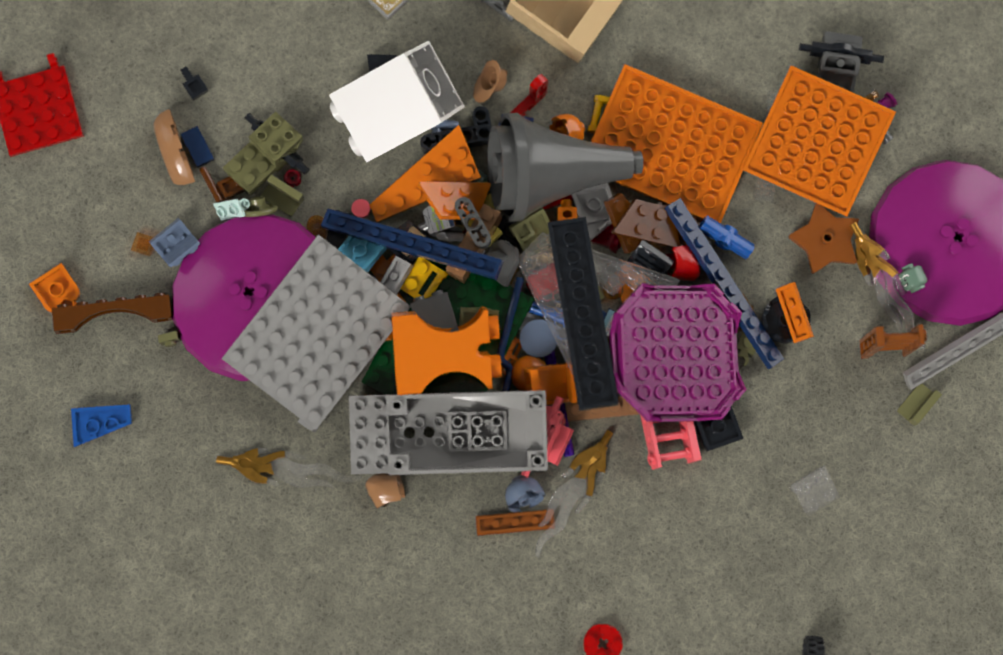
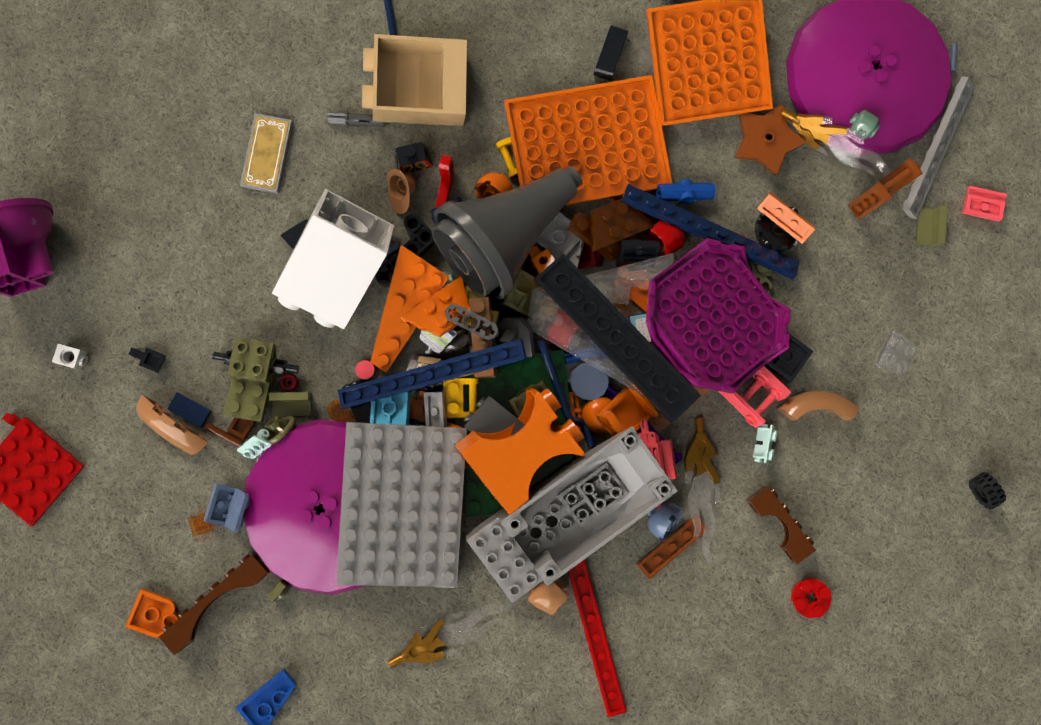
camera: 35 degrees left, 5 degrees up
(127, 37) = (63, 353): none -> white brick
(400, 553) = (596, 640): none -> red tile
(517, 62) = (412, 157): none -> black torso
(621, 589) = (795, 544): none -> reddish brown arch
(658, 484) = (767, 436): none -> light aqua hinge
(722, 485) = (808, 401): none -> medium nougat brick
(740, 83) = (610, 52): none -> black beam
(978, 415) = (984, 203): none -> coral plate

